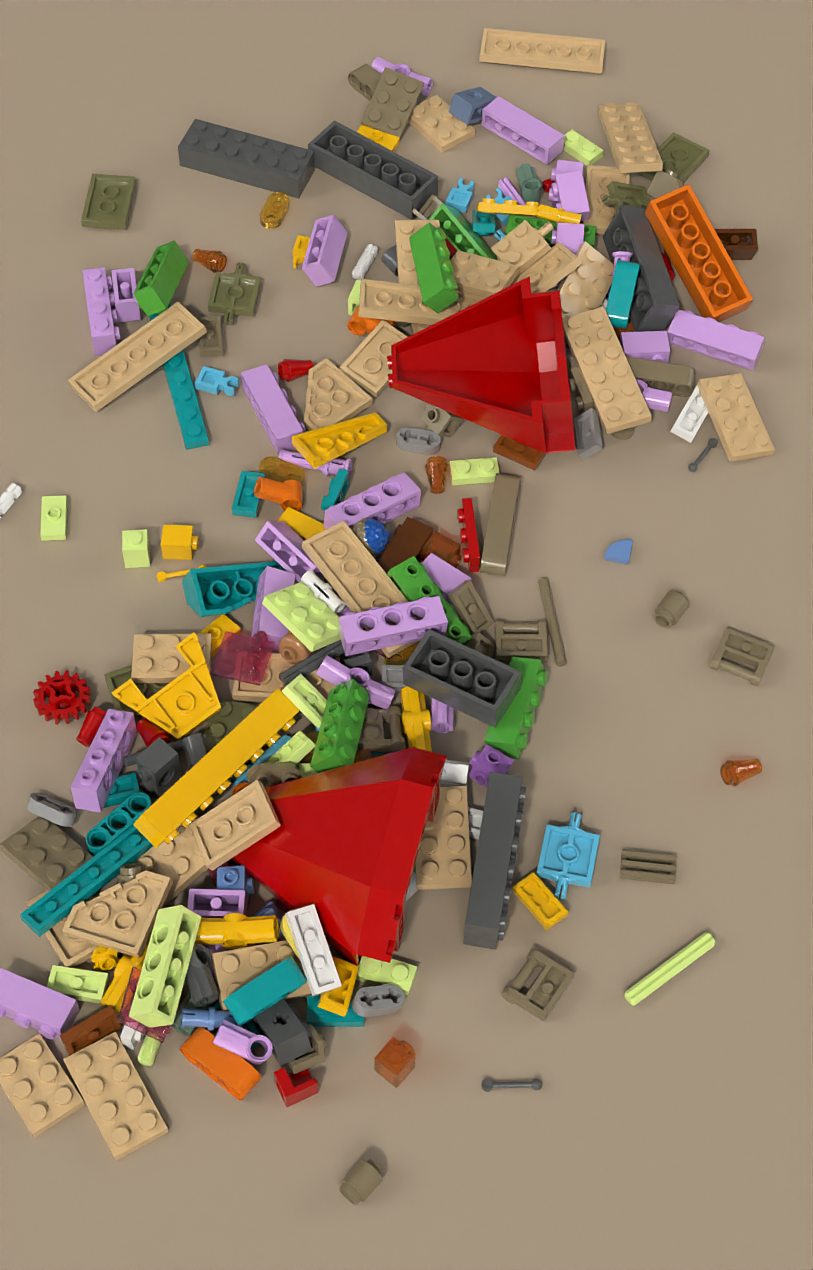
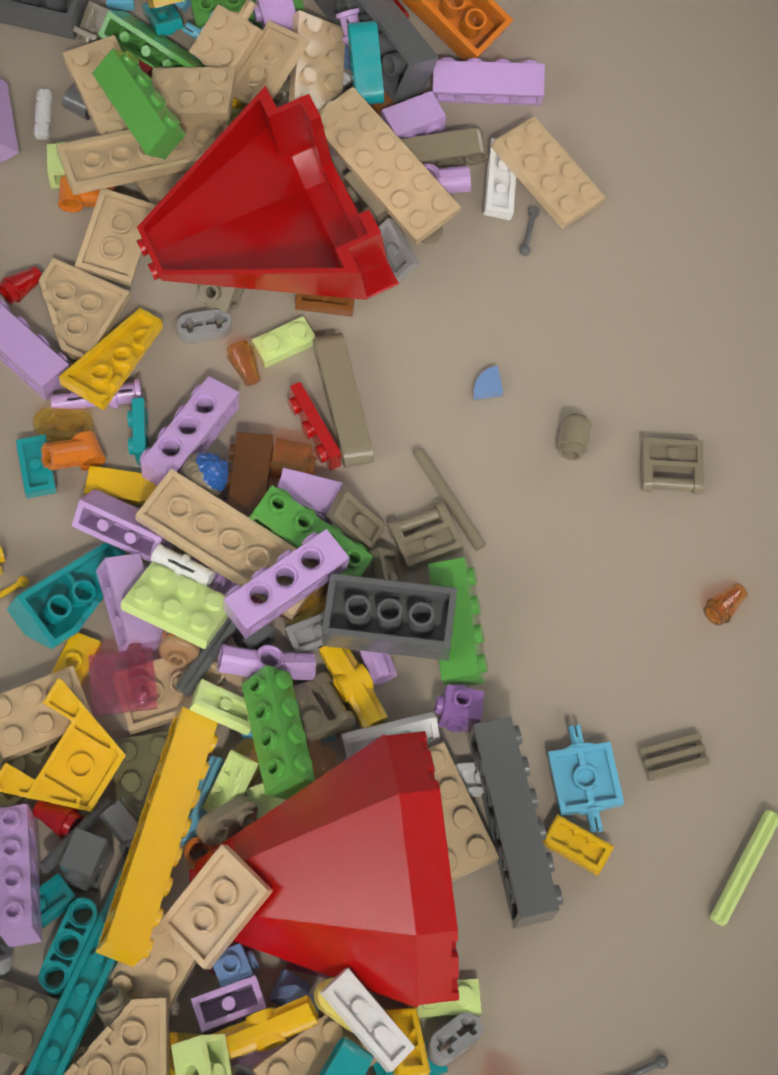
camera: 25 degrees left, 10 degrees up
(545, 990) = (627, 948): dark tan plate -> none

